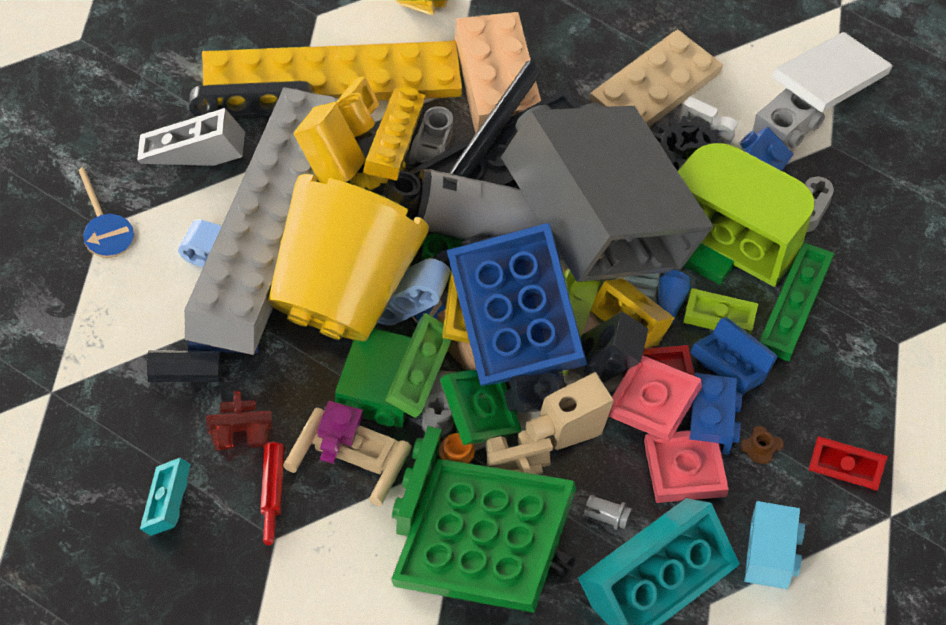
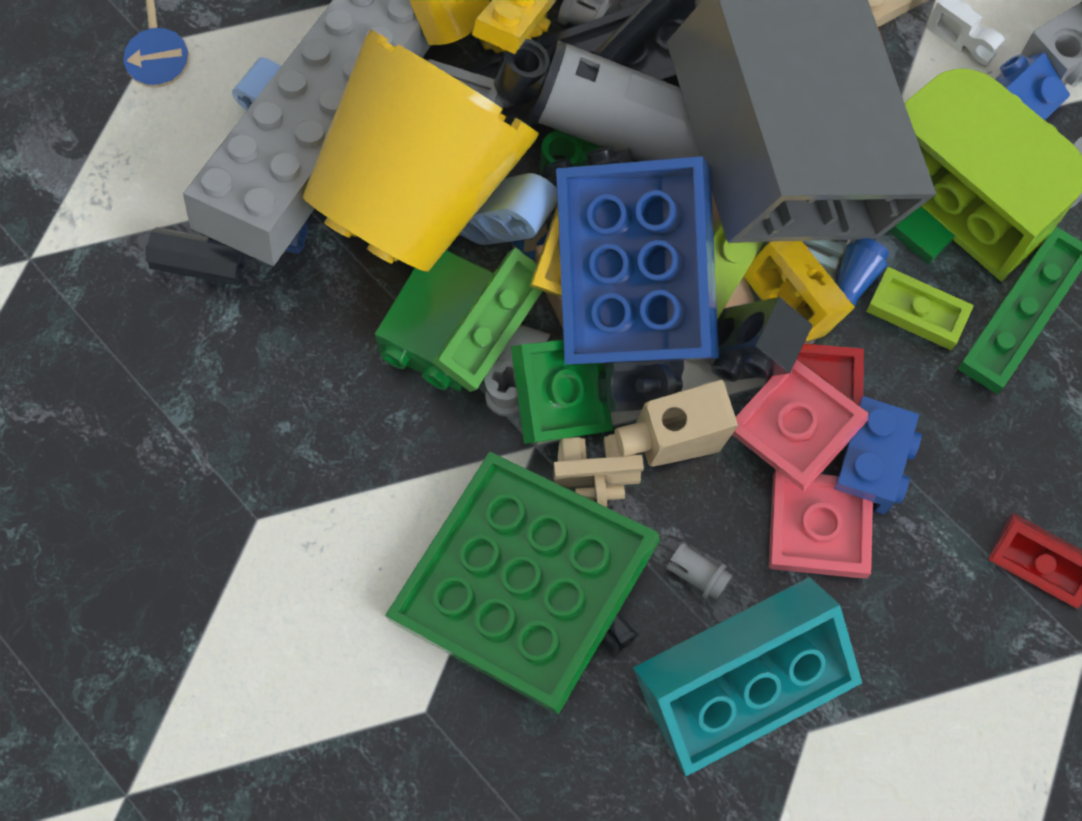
camera: 15 degrees right, 15 degrees up
(165, 497) = (119, 449): teal plate -> none
(223, 425) = (223, 353): clear red hips -> none
(271, 488) = (266, 449): red axle -> none
(337, 426) = (366, 382): magenta plate -> none
(369, 451) = (387, 410): tan plate -> none
(416, 480) = (454, 475): green plate -> none
(453, 449) = (512, 447): orange plate -> none
(685, 138) = (927, 53): black gear -> none
(735, 354) = (924, 376): blue bracket -> none
(760, 453) = (932, 526): reddish brown plate -> none
(773, 545) = (915, 669): medium azure brick -> none

